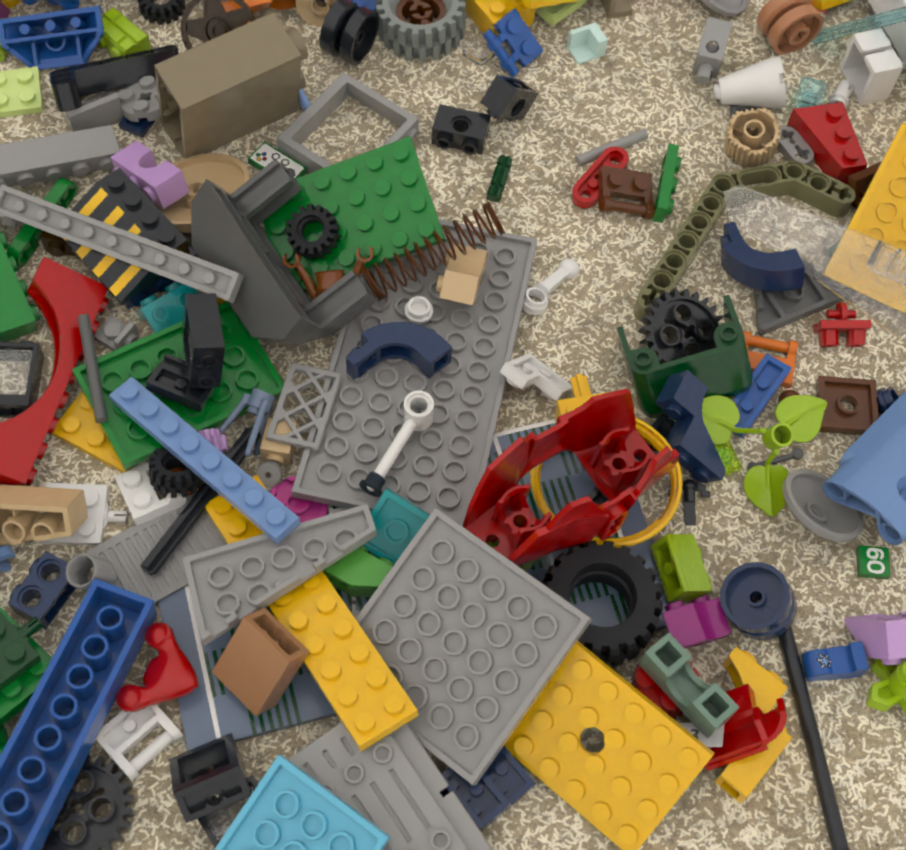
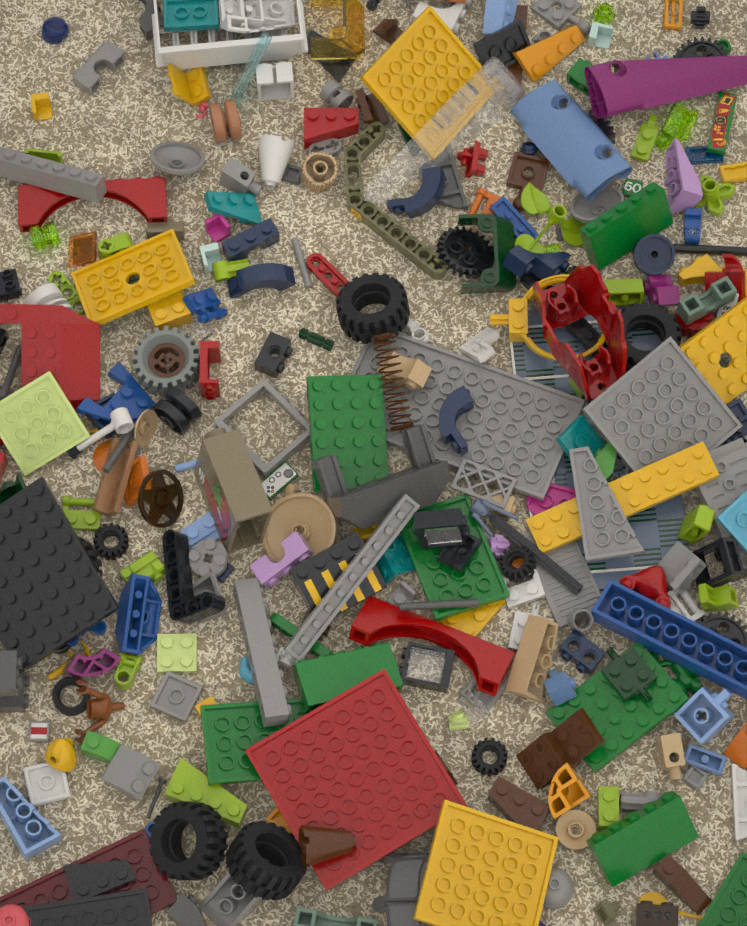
camera: 75 degrees left, 5 degrees up
(156, 791) = (718, 598): none -> lime brick
(195, 719) = (681, 567): none -> light grey bracket
(205, 460) = (519, 542): medium blue plate -> none
(260, 661) = (655, 526): medium nougat brick -> none
(275, 470) = (523, 513): light grey piece -> none
(280, 734) = (696, 524): none -> lime brick
(305, 217) = (368, 447): black tyre -> none
(324, 279) = (394, 452): dark orange piece -> none
(412, 422) = (547, 446): white piece -> none
(417, 53) = (209, 353): none -> red panel
(418, 310) = (424, 404): white plate -> none
(508, 98) = (259, 316): black brick -> none
(543, 243) = (367, 291): none -> black tyre
(572, 98) = (261, 276): none -> dark blue arch
(574, 65) = (226, 270): none -> lime piece
(625, 185) = (341, 258): reddish brown plate -> none
(634, 44) = (217, 228): none -> dark pink panel
(636, 89) = (262, 234): none -> dark blue arch
(667, 183) = (342, 234): green plate -> none
(669, 54) = (238, 205): none -> teal wing
(809, 93) = (288, 127): clear light blue brick -> none
(817, 562) = (625, 224): none -> green brick
(842, 93) = (290, 109): white pin -> none
(878, 141) = (336, 95): none -> light grey wheel

